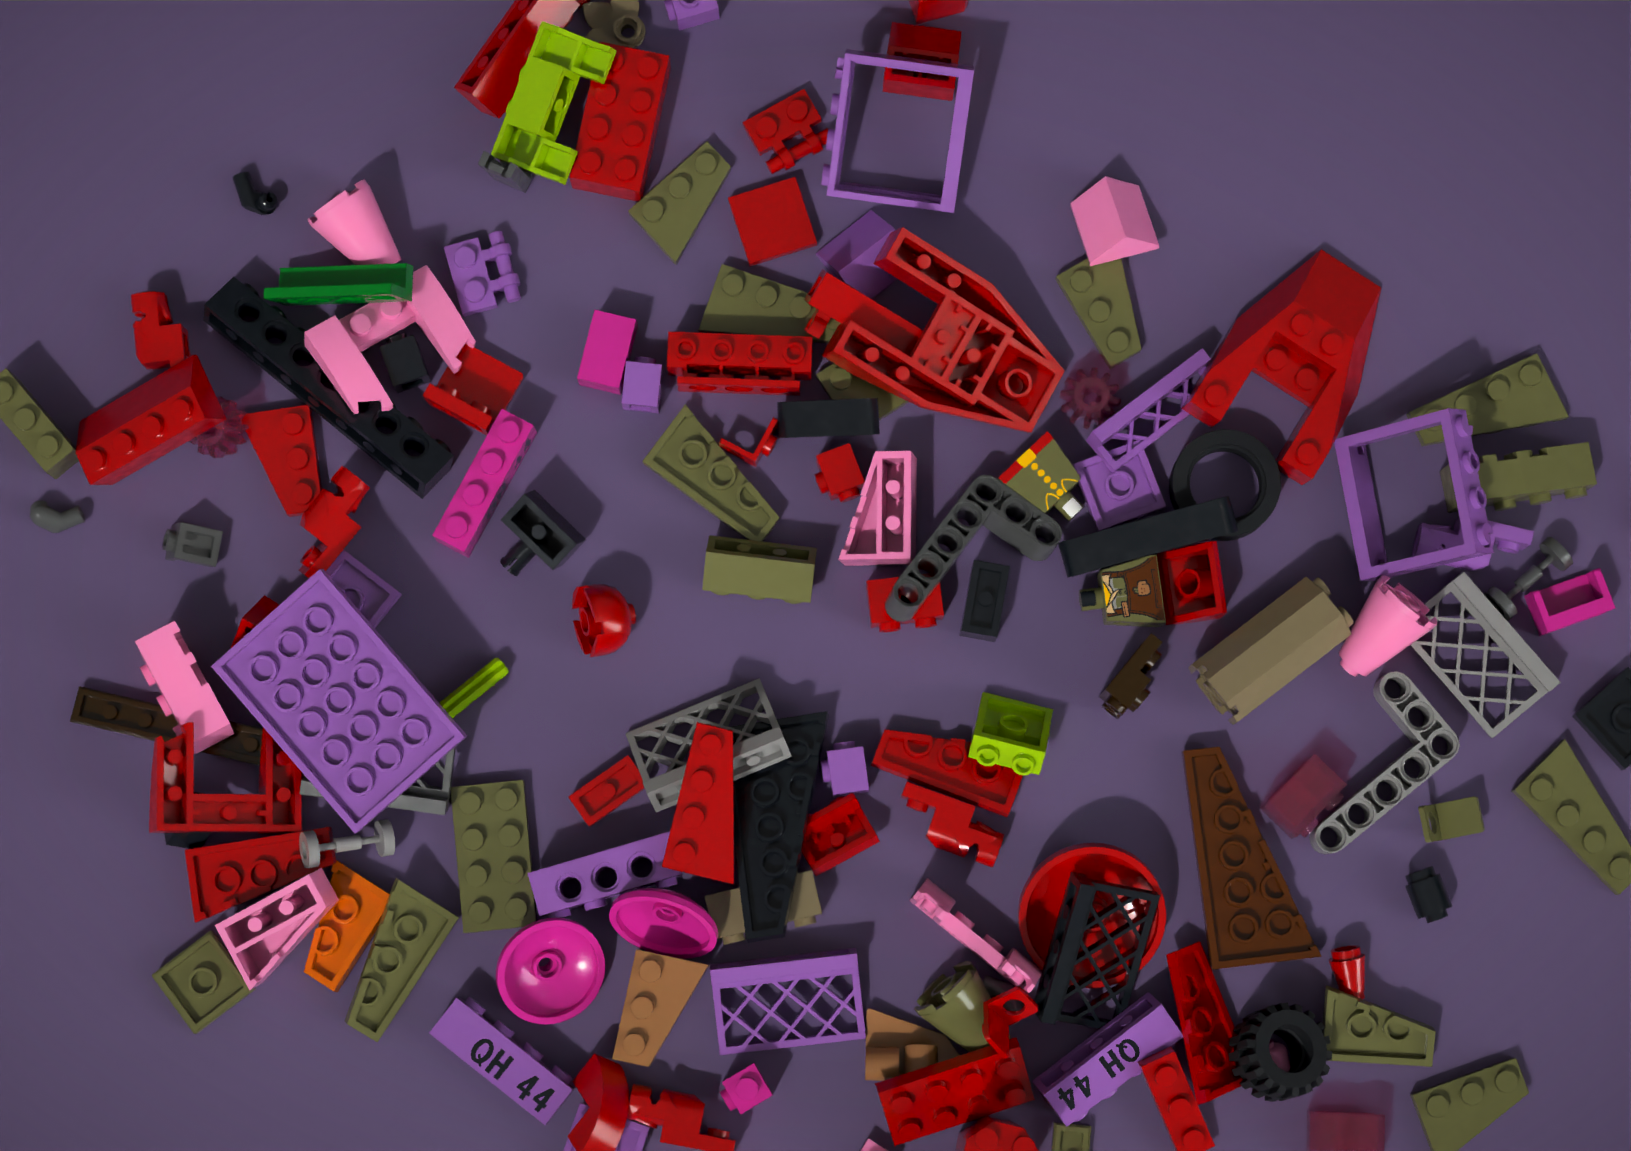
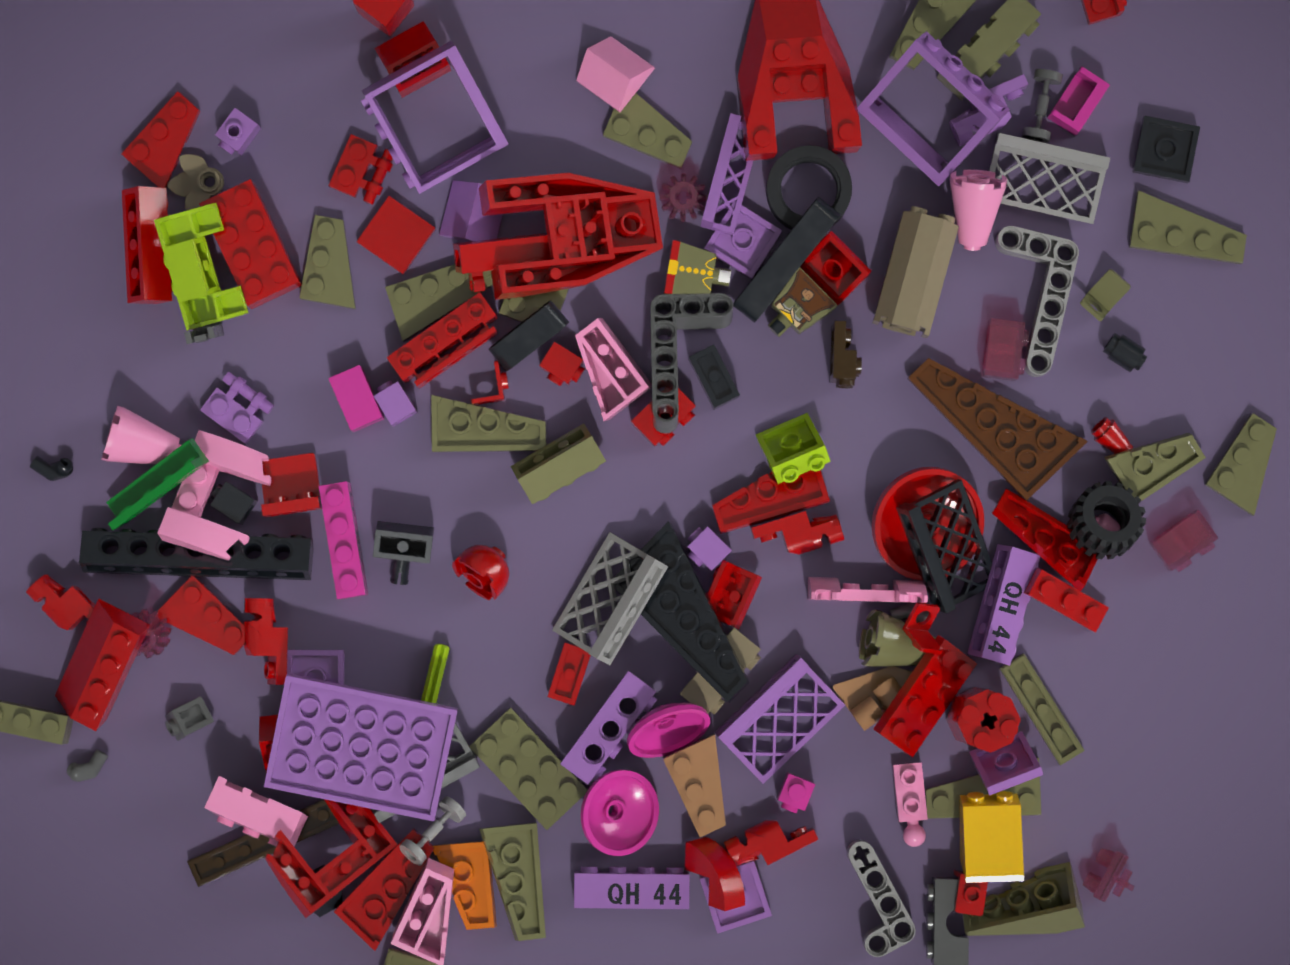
camera: 35 degrees left, 5 degrees up
(704, 815) = (642, 644): red wing -> none

